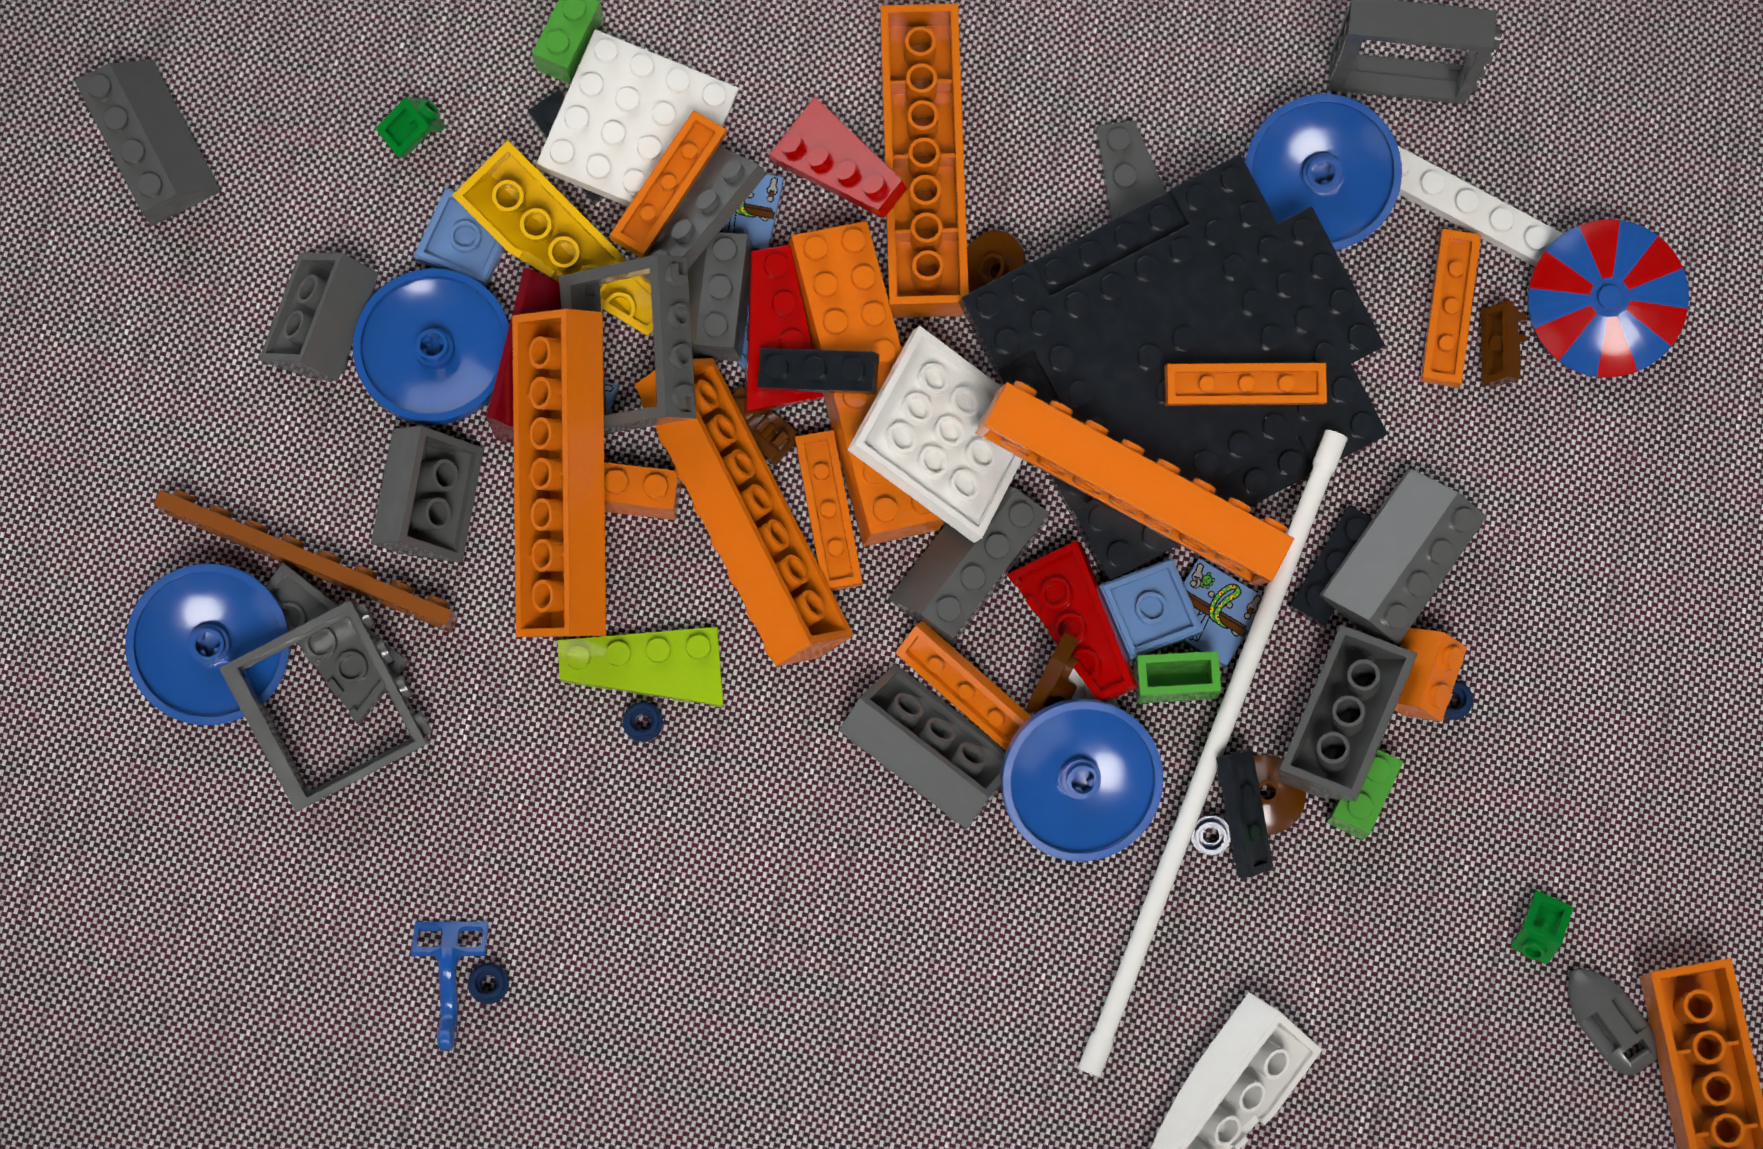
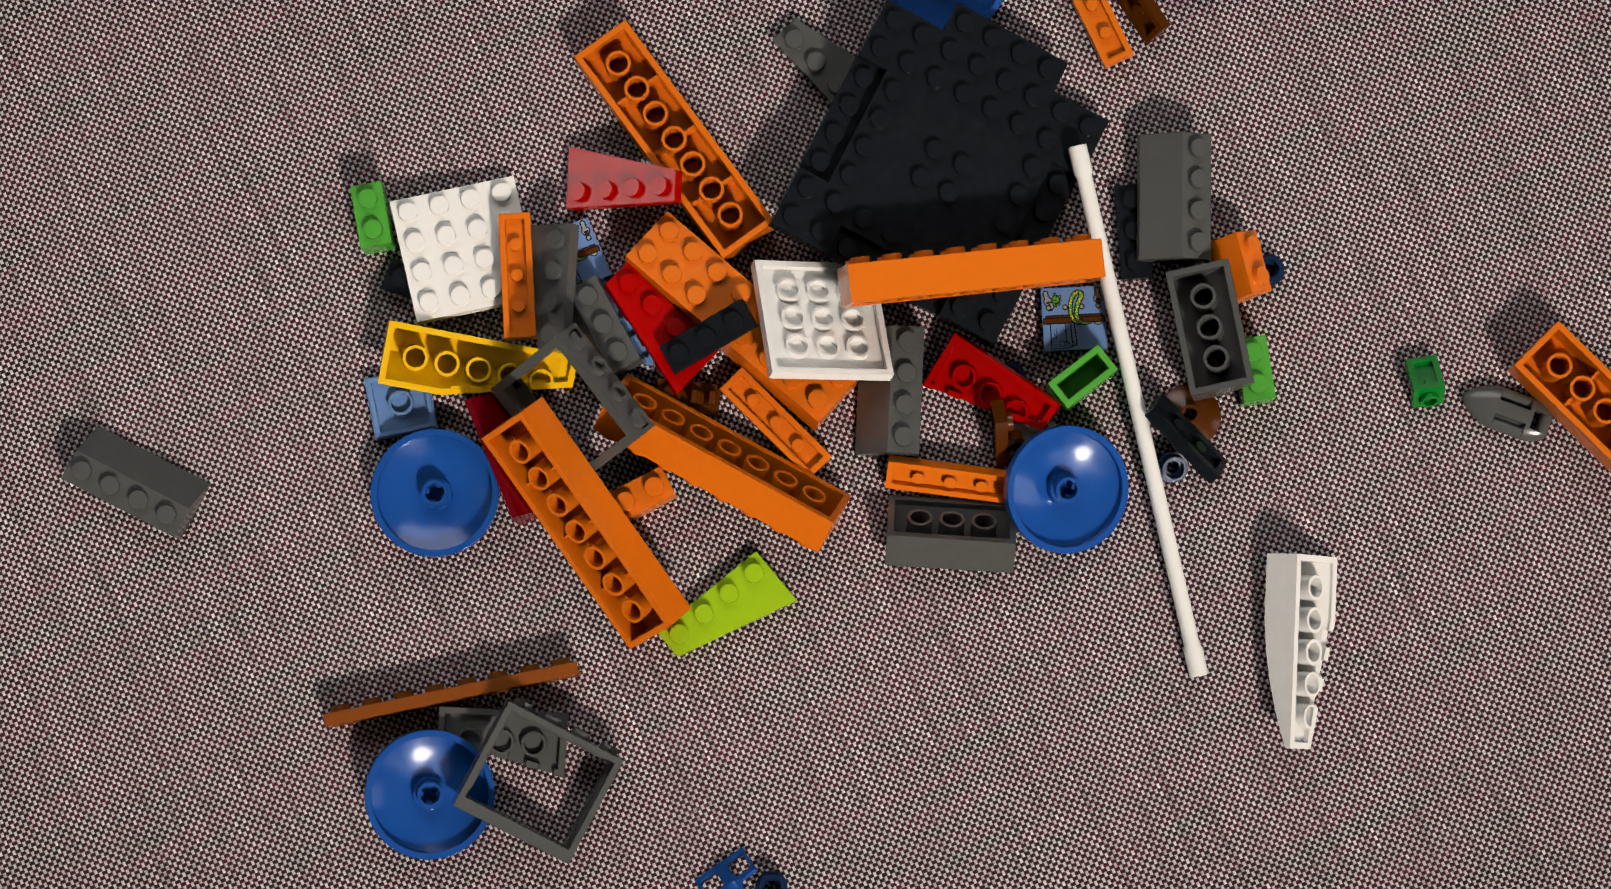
camera: 30 degrees left, 5 degrees up
(319, 315) = (341, 524): dark grey slope -> none
(409, 125) = (309, 352): green bracket -> none
(427, 494) = (501, 594): dark grey slope -> none
(642, 709) = (748, 637): dark blue plate -> none
(991, 253) = (761, 177): reddish brown dish -> none
(1151, 609) = (1033, 344): medium blue tile -> none
(1245, 384) = (996, 154): orange plate -> none

